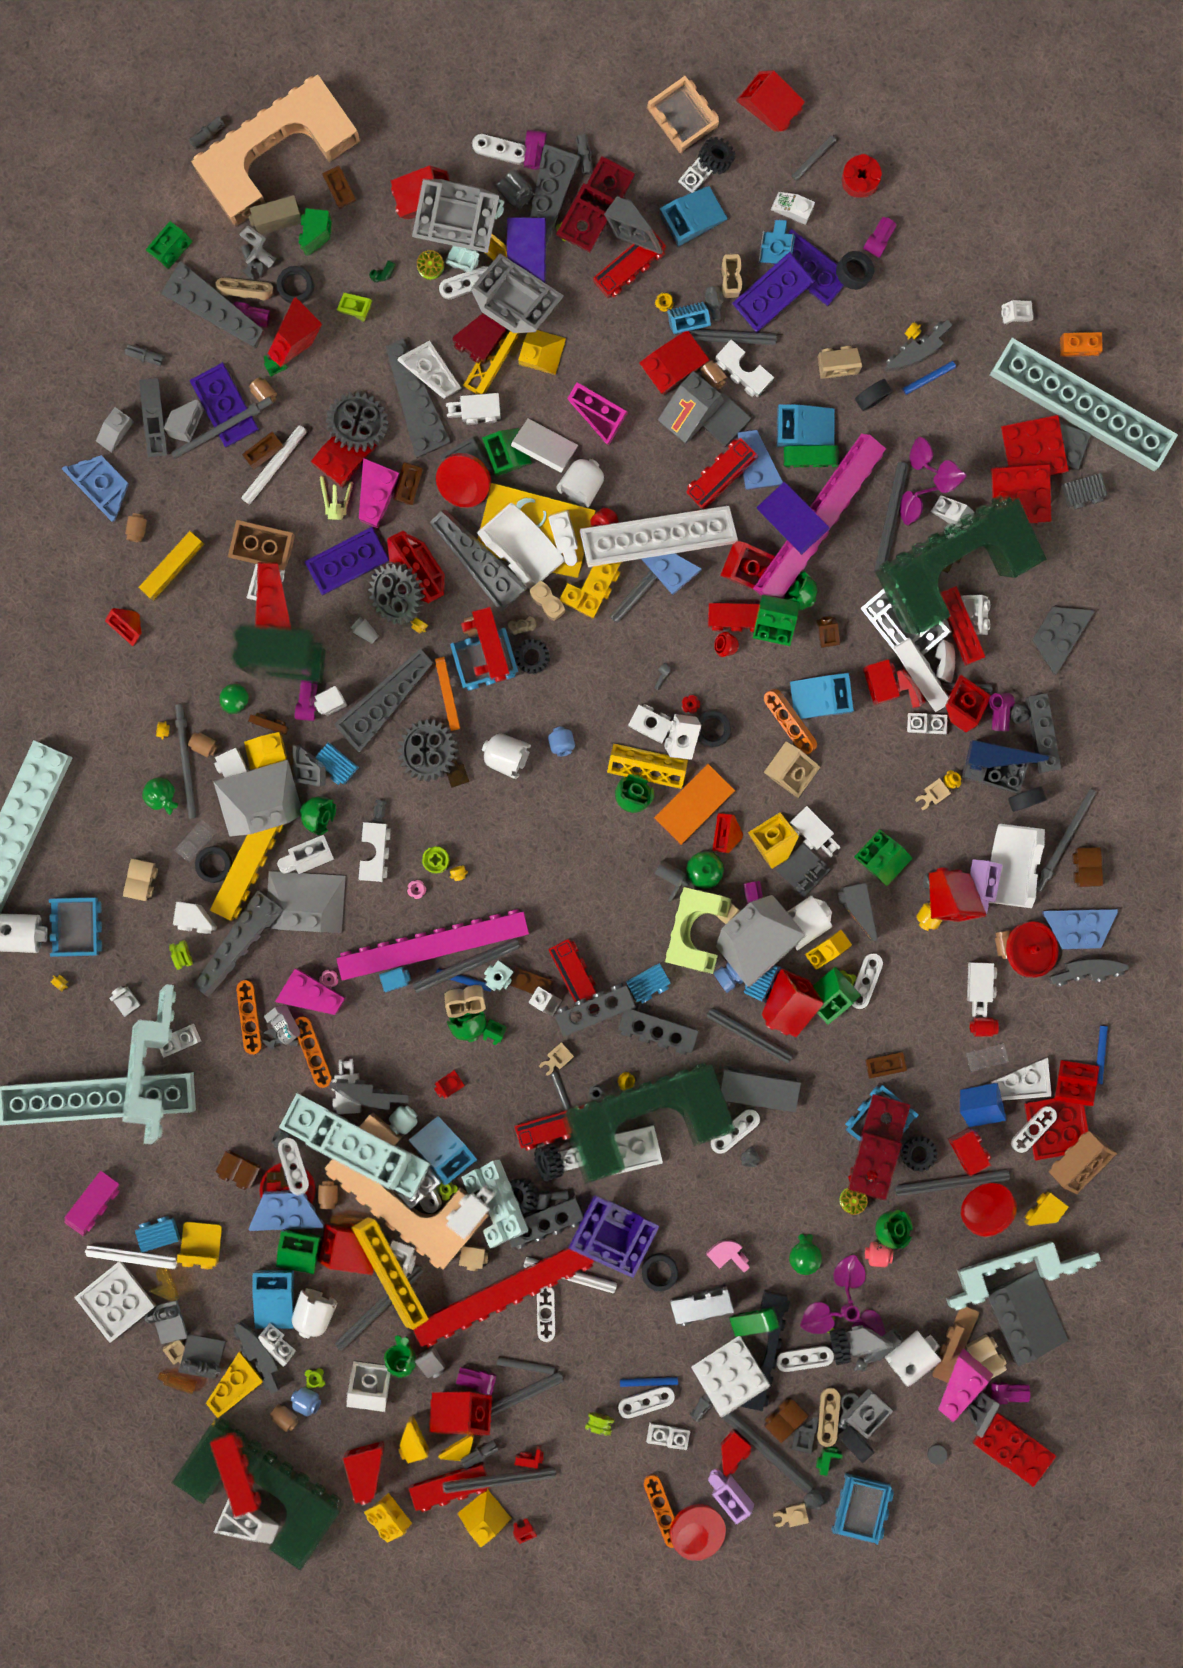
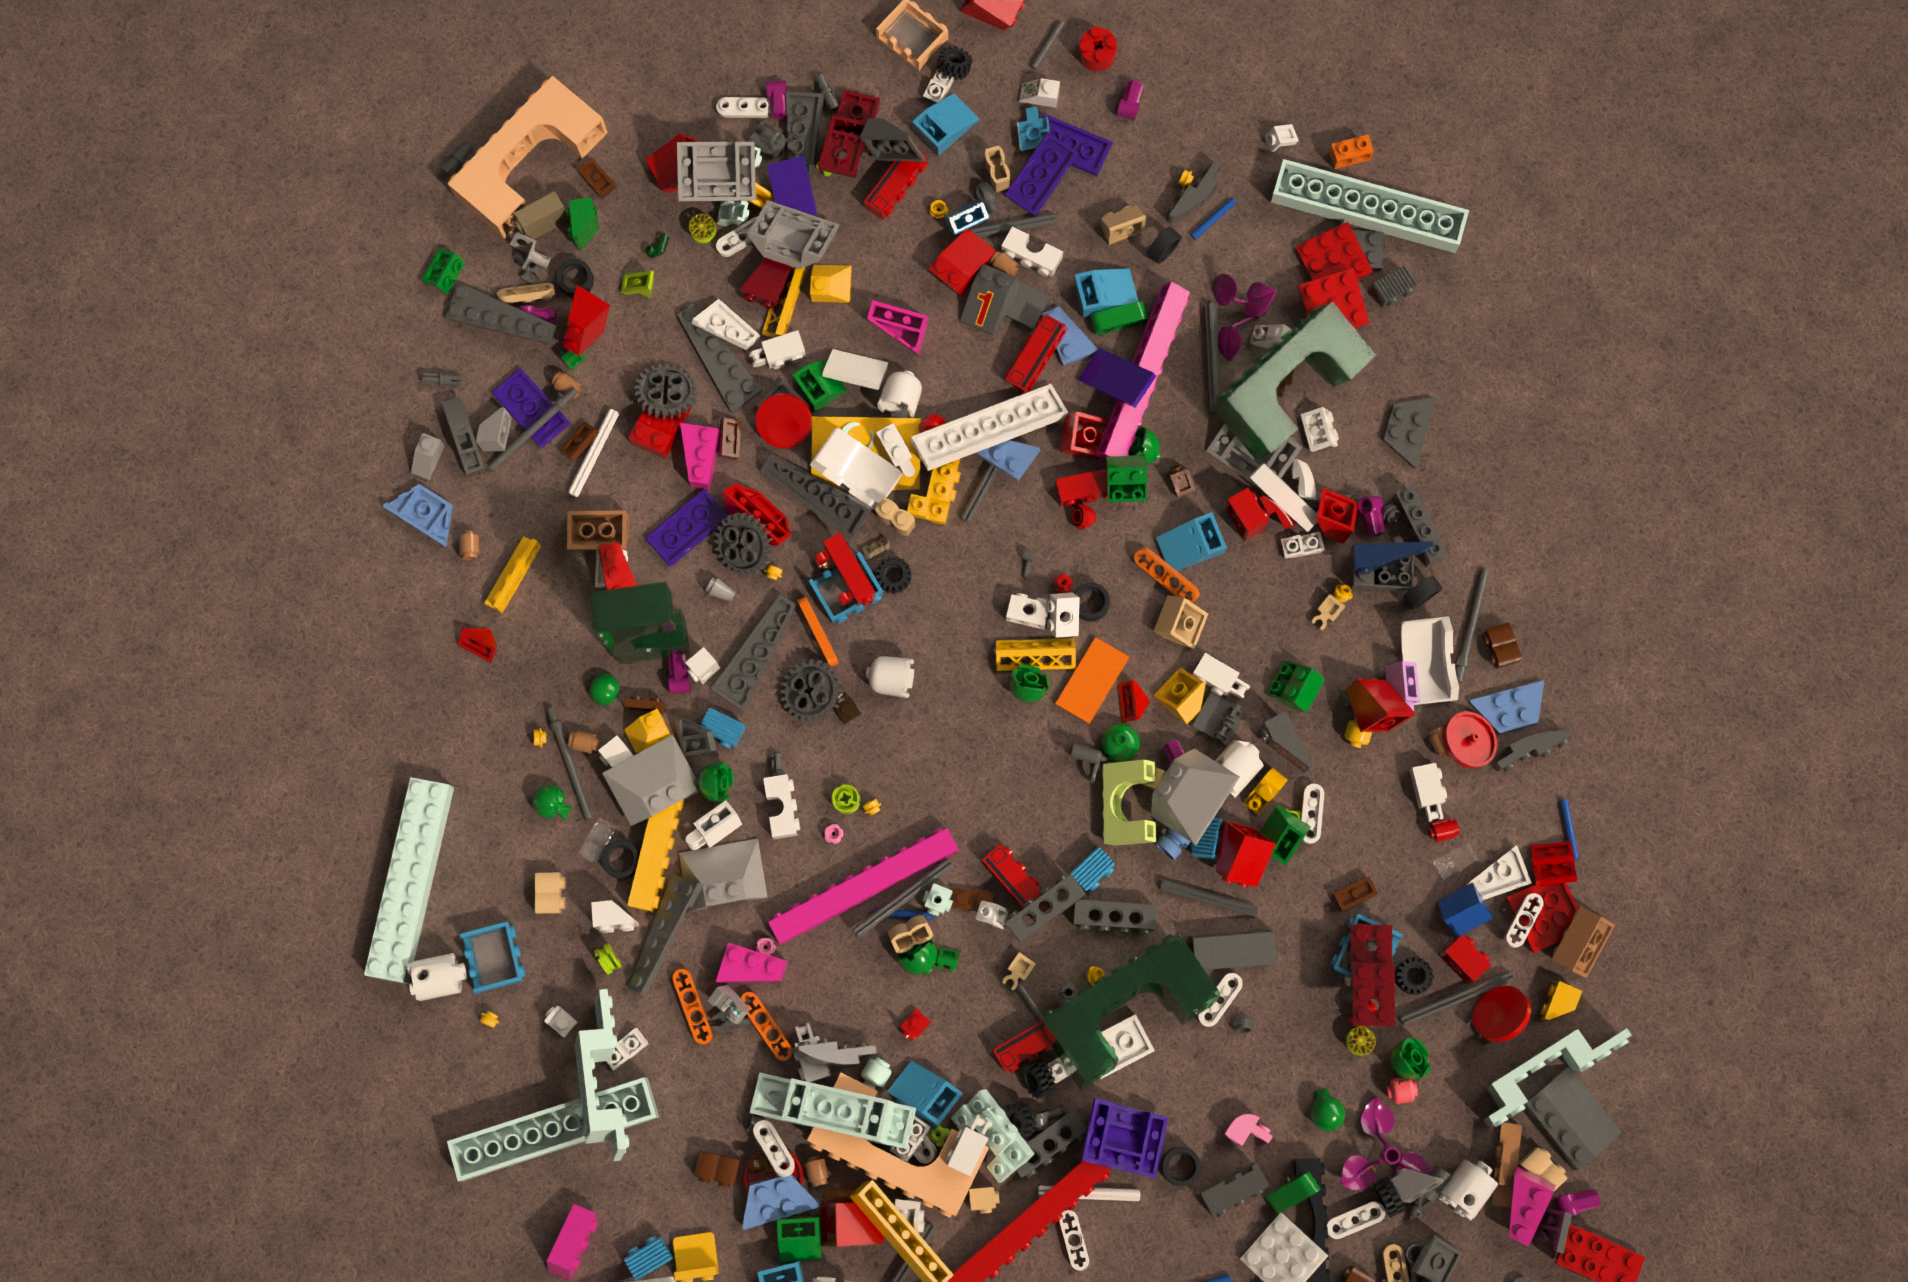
camera: 15 degrees left, 10 degrees down
(335, 511) = (664, 482): yellowish green plant -> none
(395, 979) = (833, 928): dark azure brick -> none
(561, 741) = (943, 650): medium blue head -> none
(846, 278) = (1113, 145): black tyre -> none
(962, 628) = (1312, 444): red fence -> none

